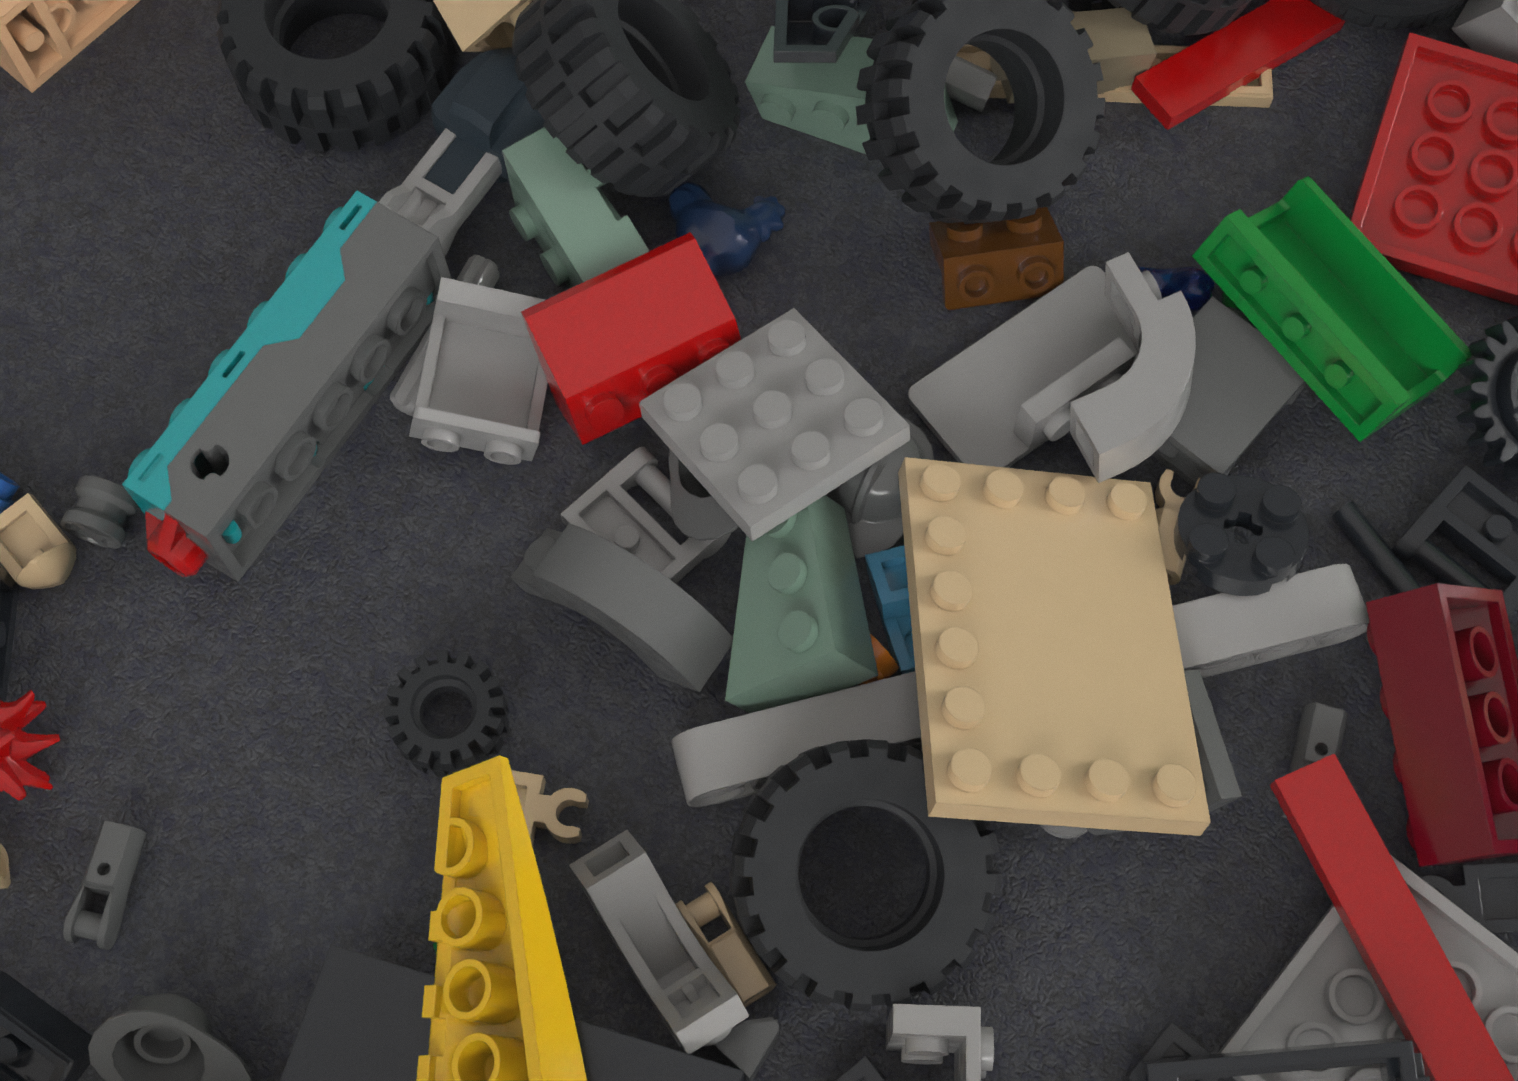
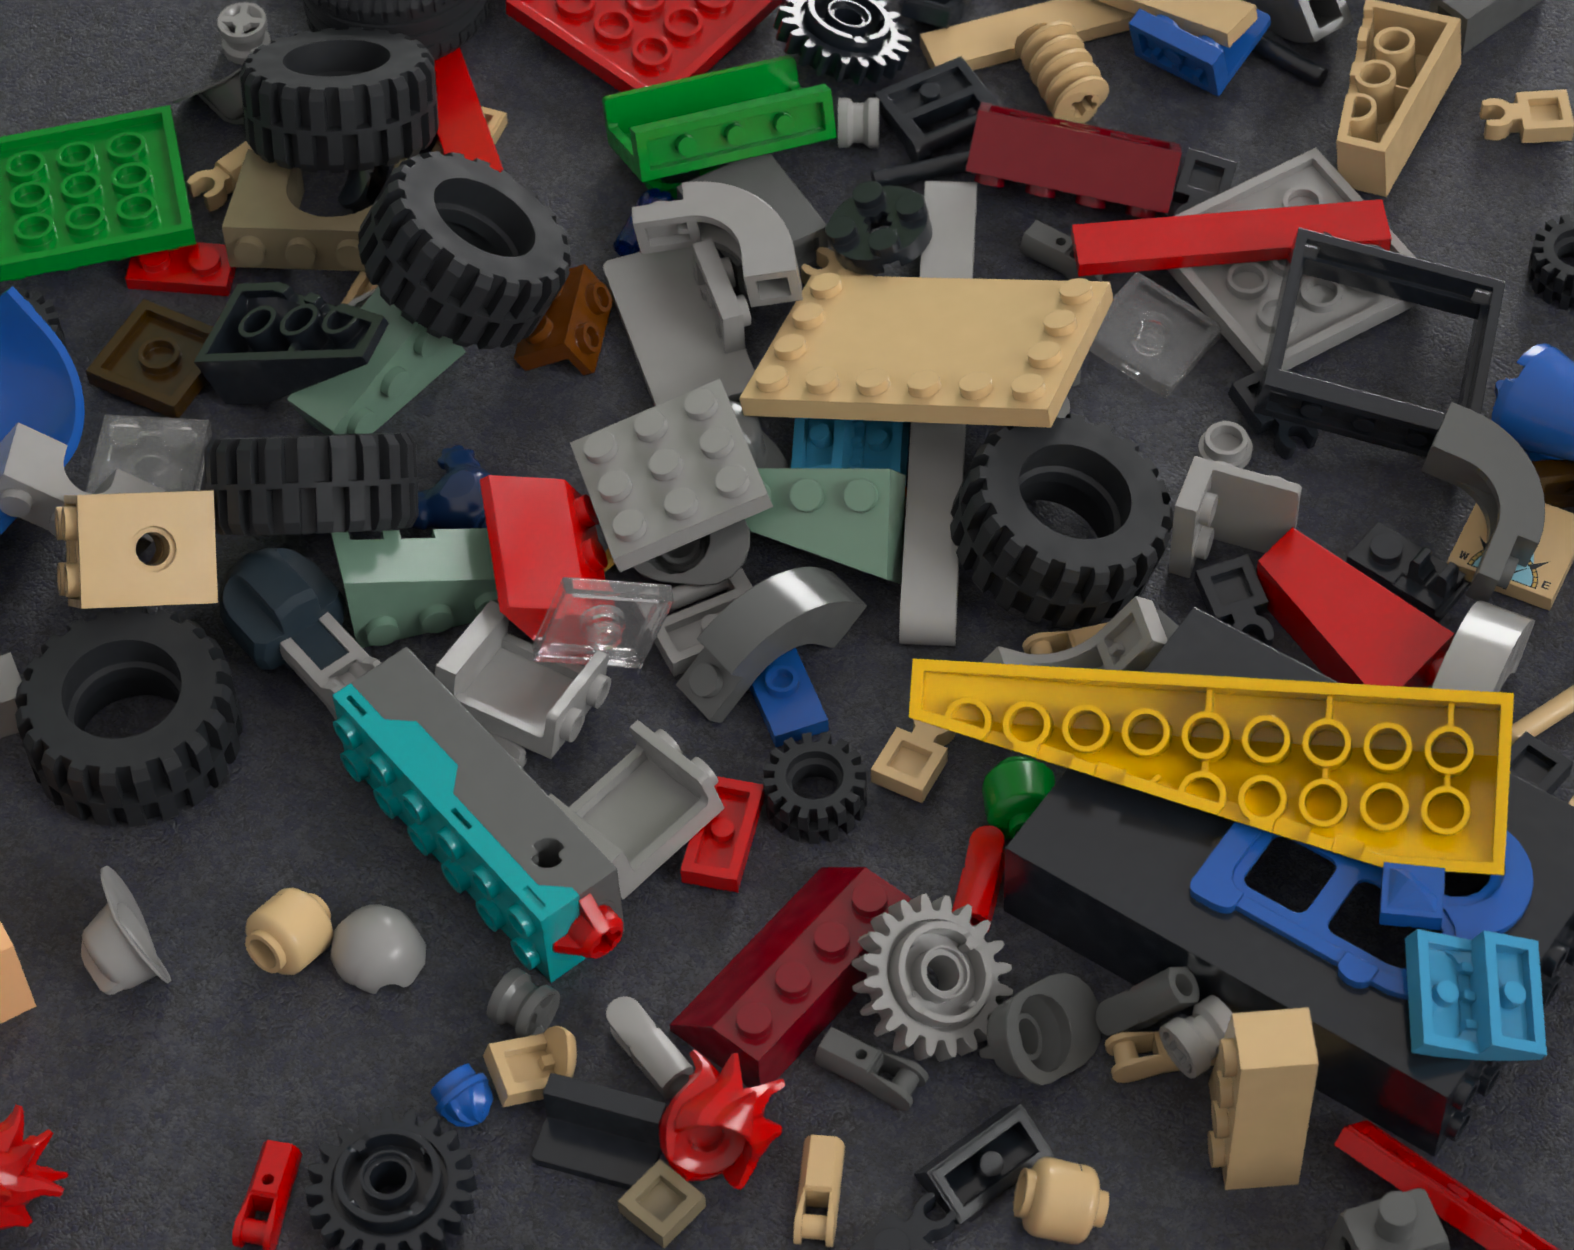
camera: 70 degrees left, 15 degrees down
(84, 649) = (648, 1046): none -> light grey bar
(95, 129) = (118, 942): none -> light grey piece
(135, 268) = (288, 931): none -> tan head
(147, 357) = (377, 948): none -> light grey hair
(201, 766) = (789, 976): none -> dark red slope
(231, 887) = (896, 969): none -> light grey gear
(346, 536) = (646, 806): none -> light grey panel
(362, 637) = (721, 848): none -> red plate
(371, 929) = (982, 874): none -> red bar
(558, 420) = (602, 617): none -> clear plate
(561, 652) = (788, 700): none -> blue plate
(1086, 1041) = (1226, 443): none -> light grey plate
(1226, 903) = (1154, 335): none -> clear plate
(1414, 463) = (858, 122): none -> light grey wheel

